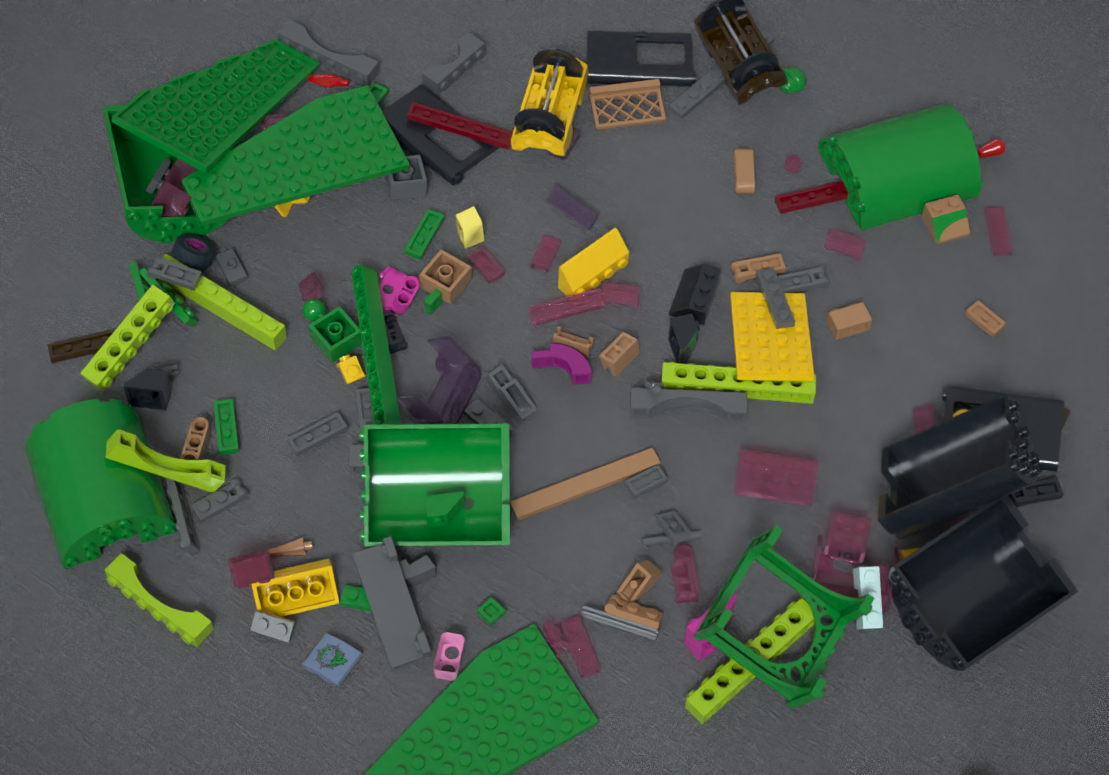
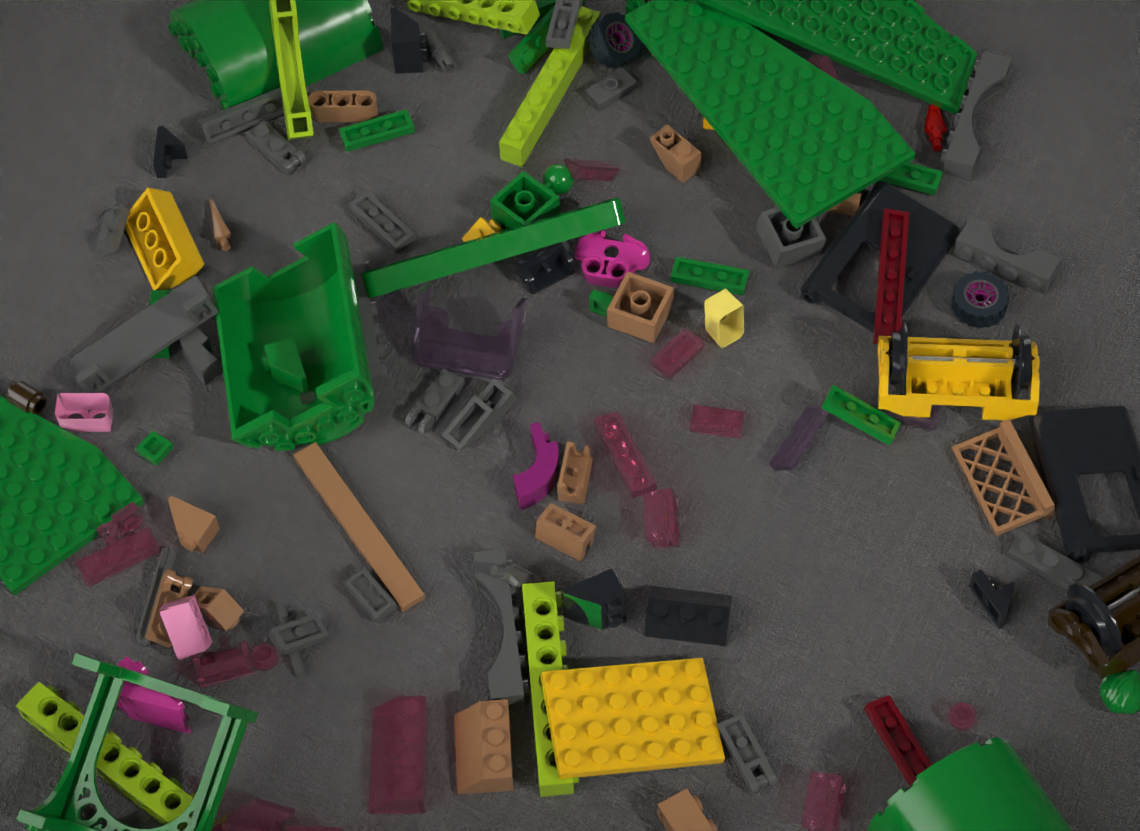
camera: 85 degrees right, 0 degrees up
(191, 626) = (161, 80): lime arch -> none
(198, 579) = (166, 149): none -> black slope
(251, 569) = (167, 181): clear pink slope -> none
(312, 232) = (676, 153): none -> medium nougat slope
(332, 659) = (74, 297): sand blue slope -> none
(424, 700) = (26, 398): none -> dark brown brick
(484, 86) = (973, 289): none -> black wheel
(564, 168) = (860, 415): none -> green plate
(566, 591) = (193, 525): none -> medium nougat slope
(593, 264) = (699, 473): yellow slope -> none
(659, 594) = (185, 627): none -> bright pink piece
(717, 128) = (994, 601): none -> black slope
(744, 171) = (927, 648): medium nougat beam -> none
(752, 265) = (756, 691): medium nougat plate -> none
(775, 298) = (695, 712): dark grey plate -> none
(777, 426) = (483, 748): none -> medium nougat slope

